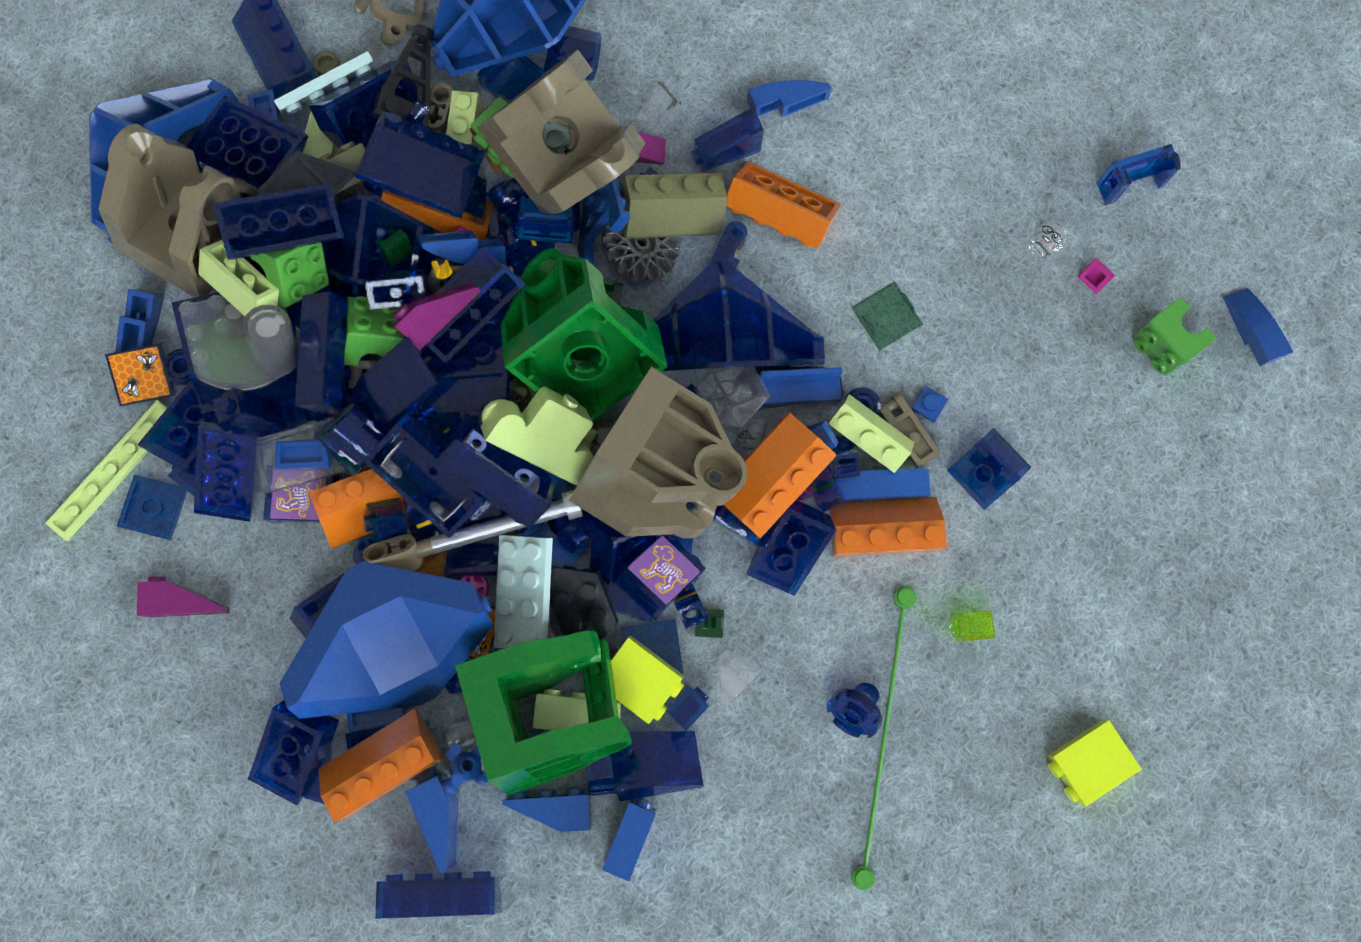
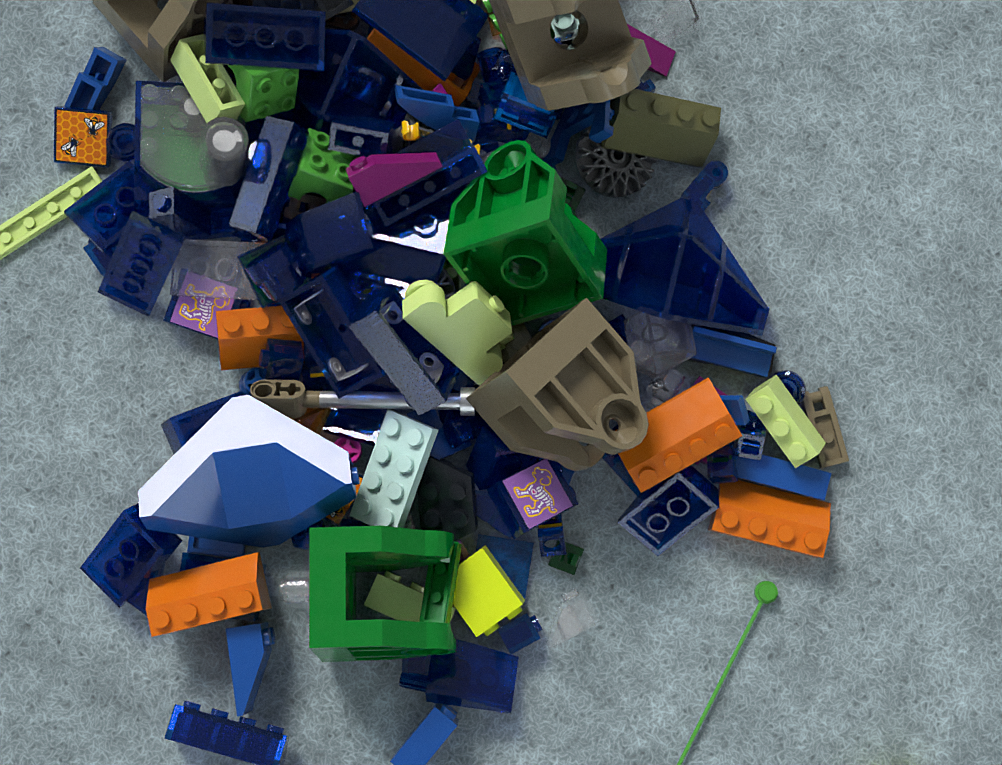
camera: 20 degrees right, 5 degrees up
(152, 507) = (58, 272): clear blue tile -> none
(168, 599) = (51, 369): magenta slope -> none
(301, 455) = (219, 271): blue tile -> none
(395, 247) = (370, 90): dark green tile -> none
(464, 766) = (289, 623): blue plant -> none
(559, 812) = (365, 692): blue slope -> none
(729, 141) = (738, 75): clear blue slope -> none
(781, 204) = (772, 156): orange slope -> none
(787, 96) = (813, 44): blue slope -> none
(855, 711) = (680, 688): clear blue tile -> none
(887, 315) = (842, 303): clear green piece -> none
(929, 404) = (855, 407): blue plate -> none
(973, 626) = (823, 642): clear neon green brick -> none
(989, 469) = (892, 491): clear blue slope -> none

